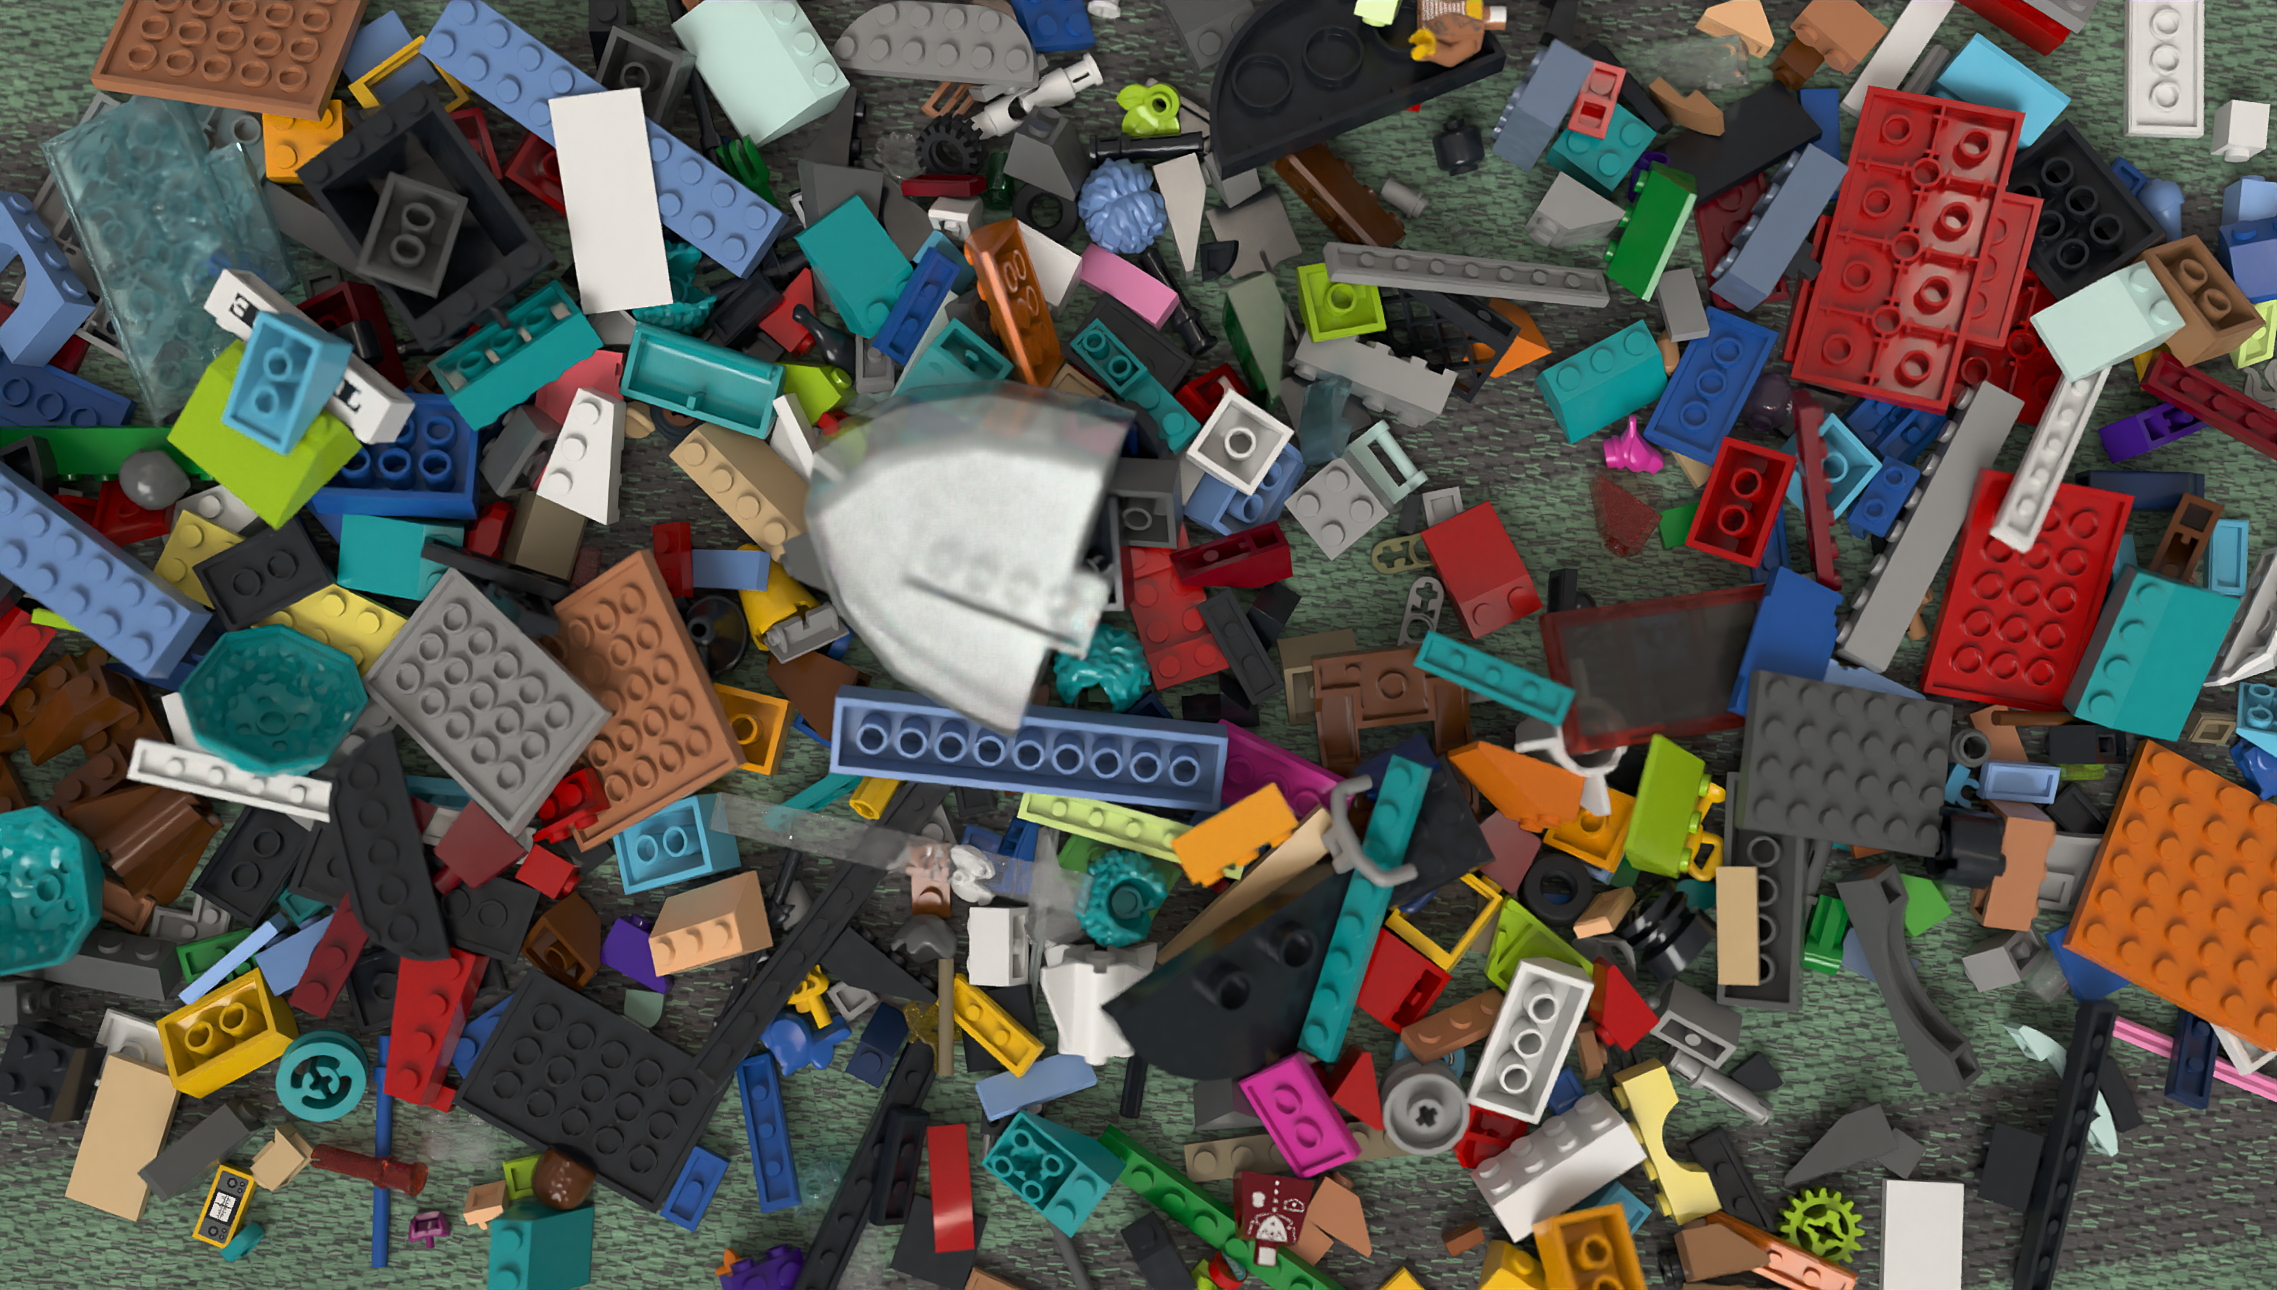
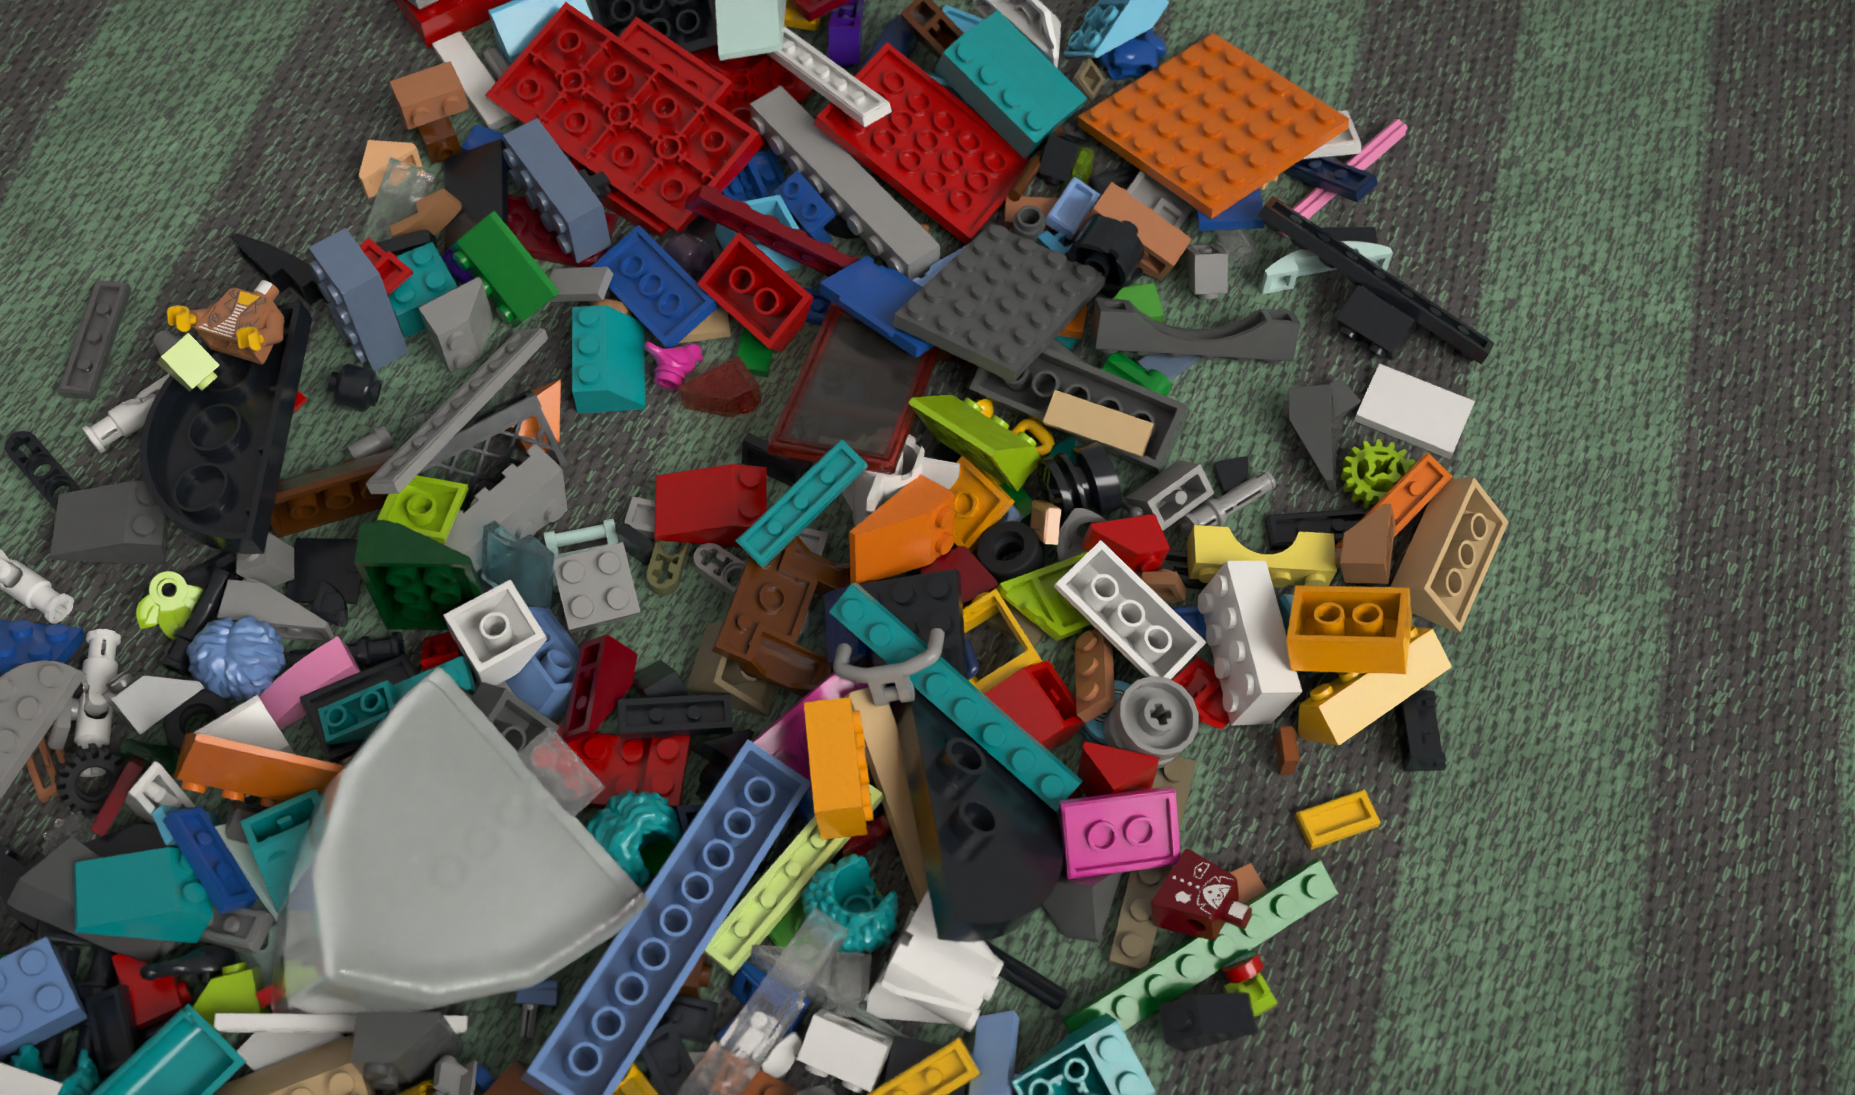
camera: 75 degrees left, 25 degrees down
(1338, 1211) = (1227, 840): nougat slope -> none

